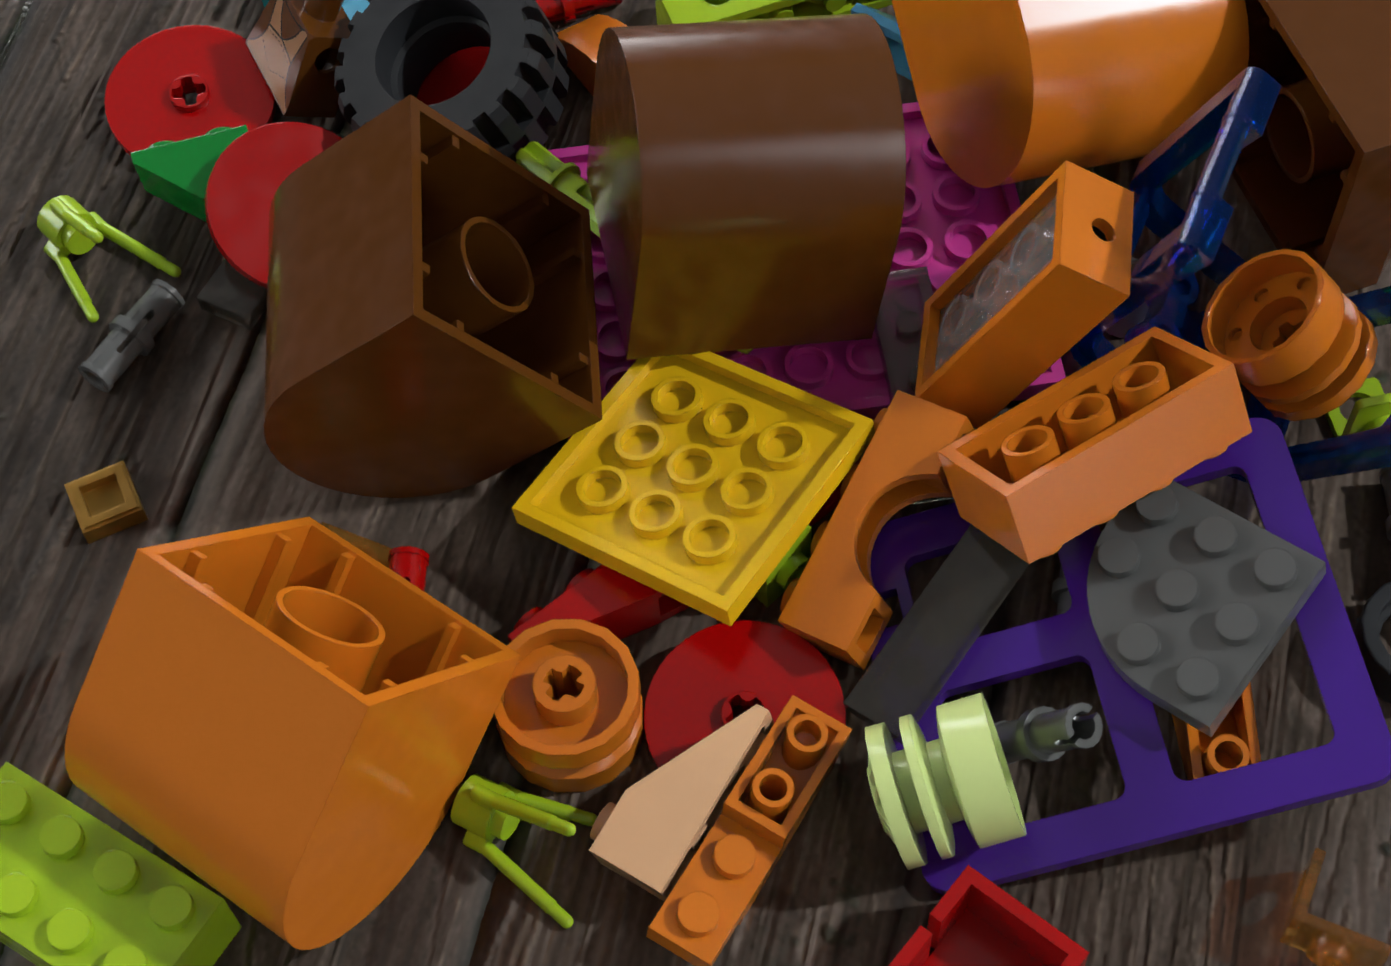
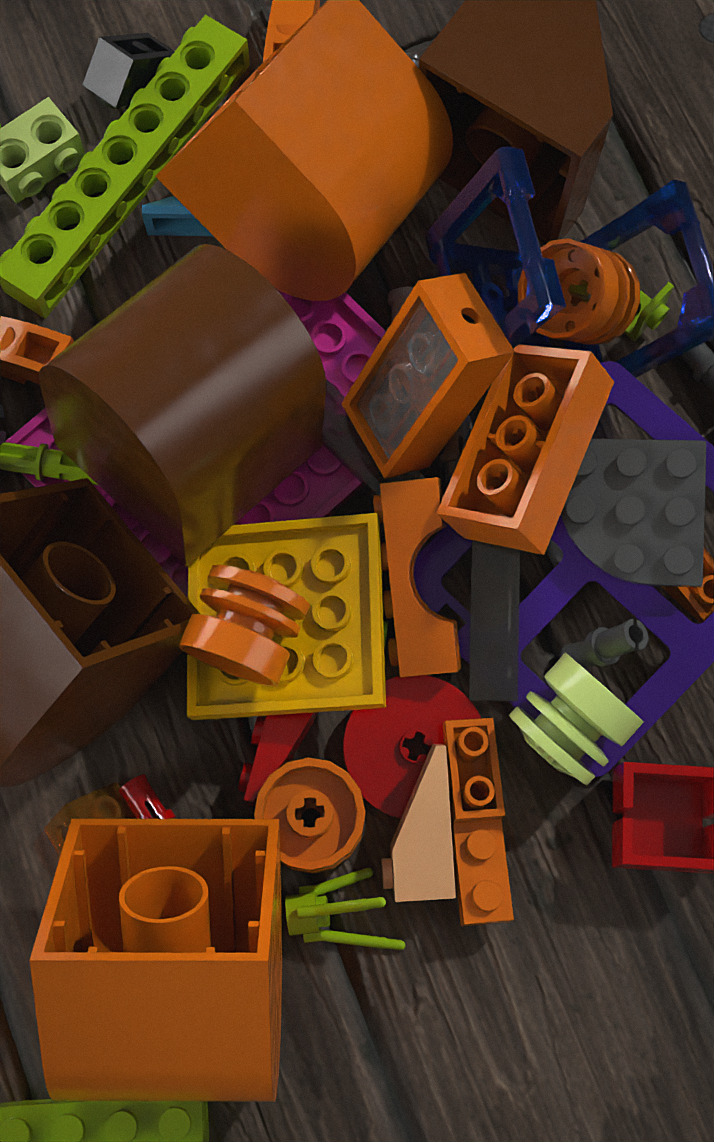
camera: 40 degrees left, 15 degrees up
(644, 425) = (248, 615): none -> orange wheel

